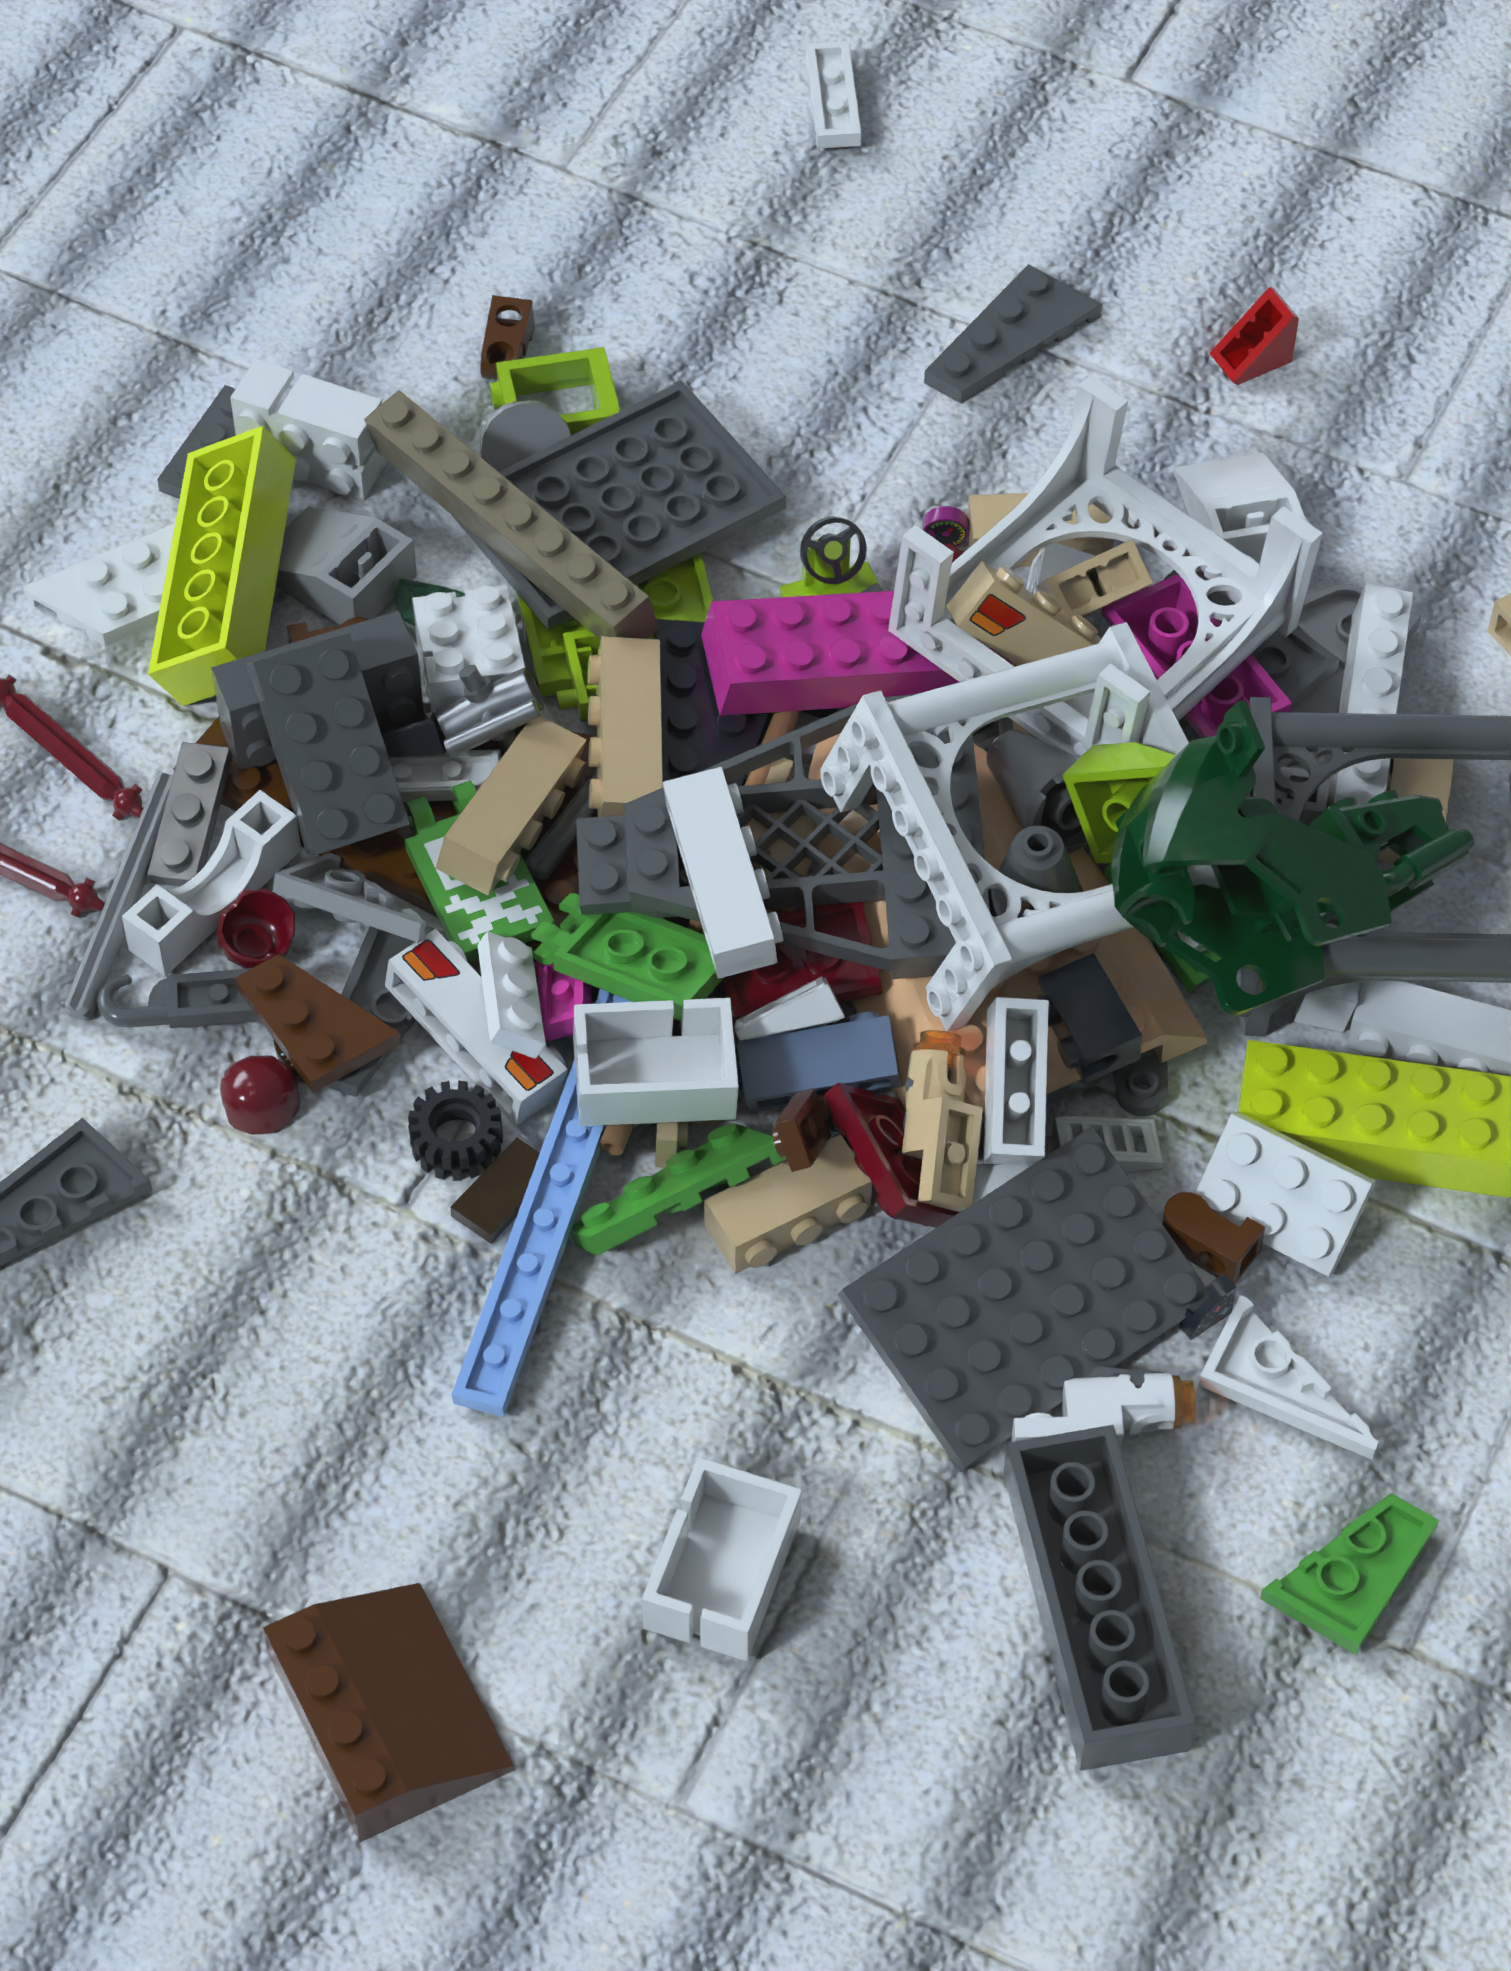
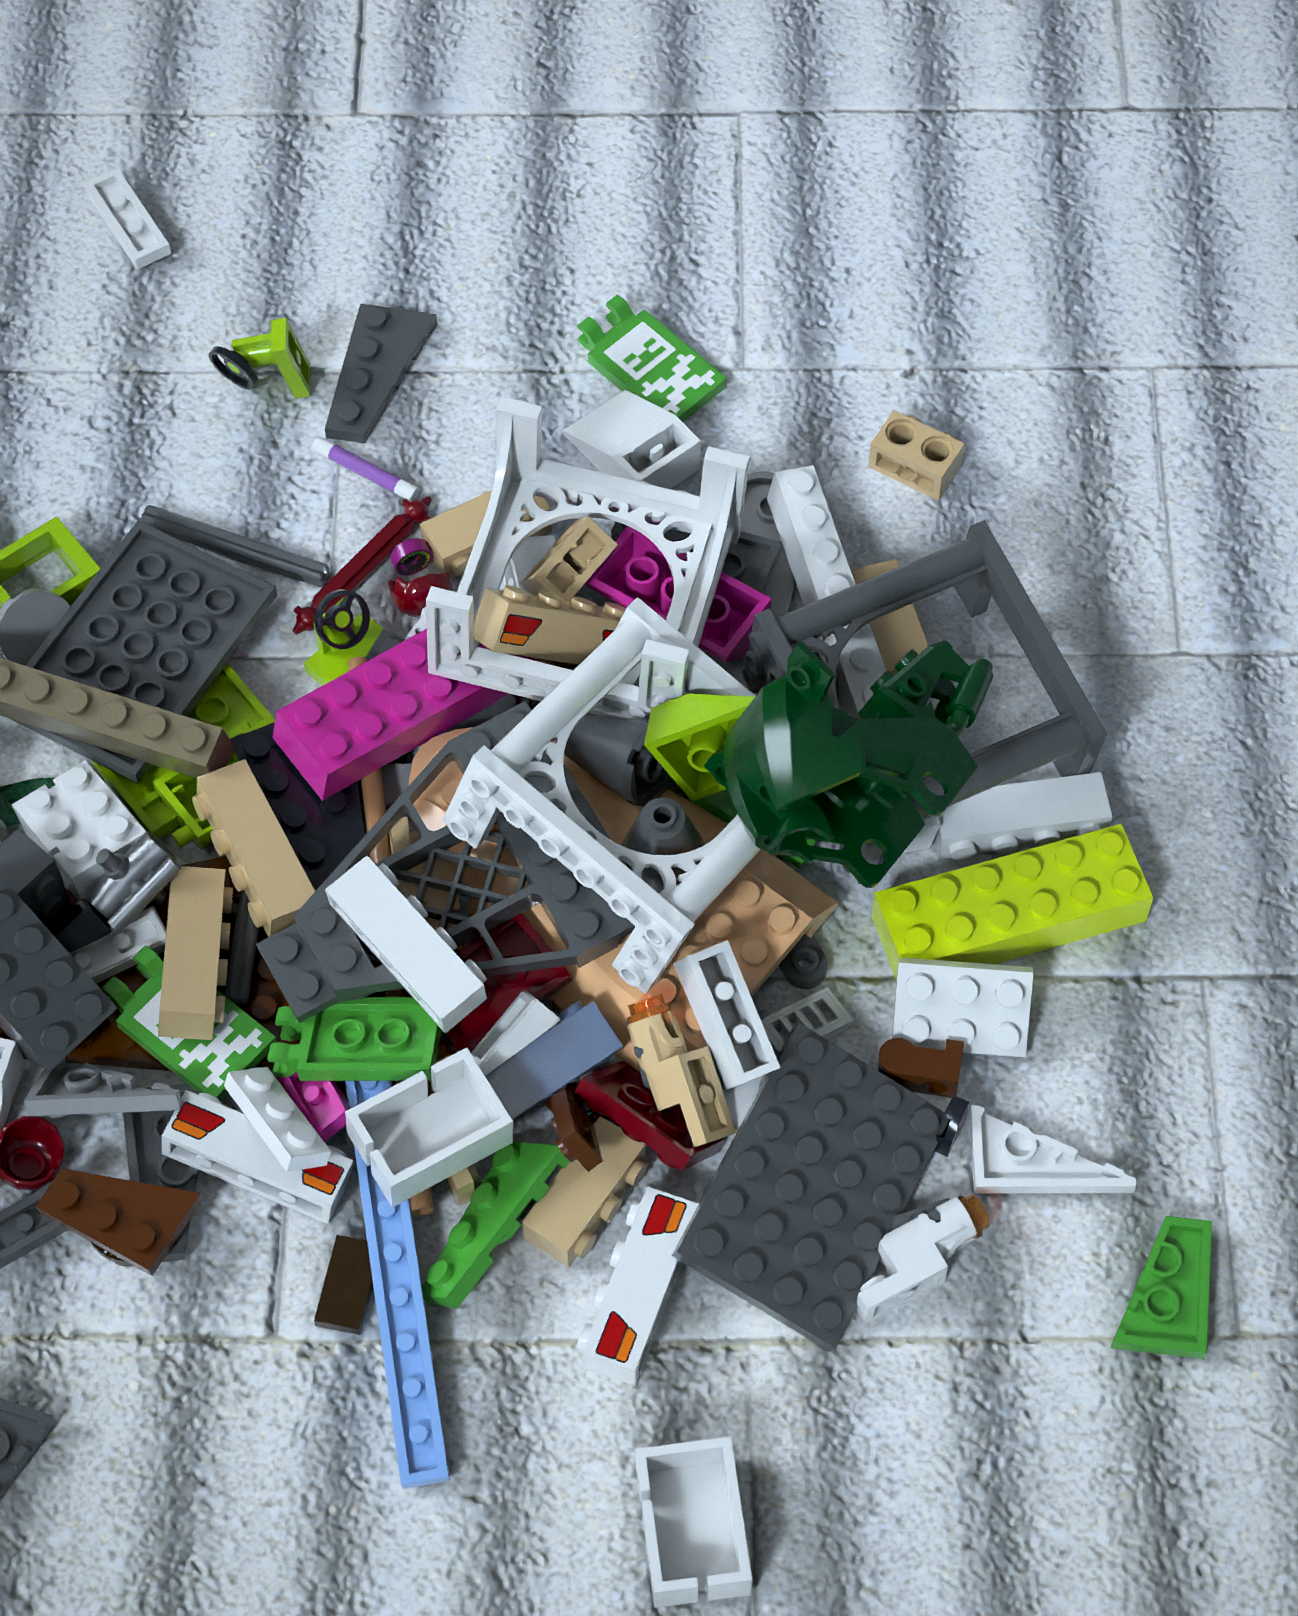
camera: 25 degrees left, 5 degrees up
(259, 1094) = (103, 1295): dark red hair -> none
(455, 1105) = (279, 1226): black tyre -> none
(773, 449) = (237, 546): none -> dark grey axle
(788, 1321) = (638, 1288): none -> white brick
(906, 511) = (366, 560): none -> dark red wheel
(909, 270) = (277, 348): none -> lime piece
(947, 427) = (365, 469): none -> medium lavender bar
(1089, 1019) = (758, 934): black brick -> none
(1098, 1598) = (996, 1411): dark grey brick -> none
(1259, 340) = (575, 296): red slope -> none
(1306, 436) = (650, 360): none -> bright green tile

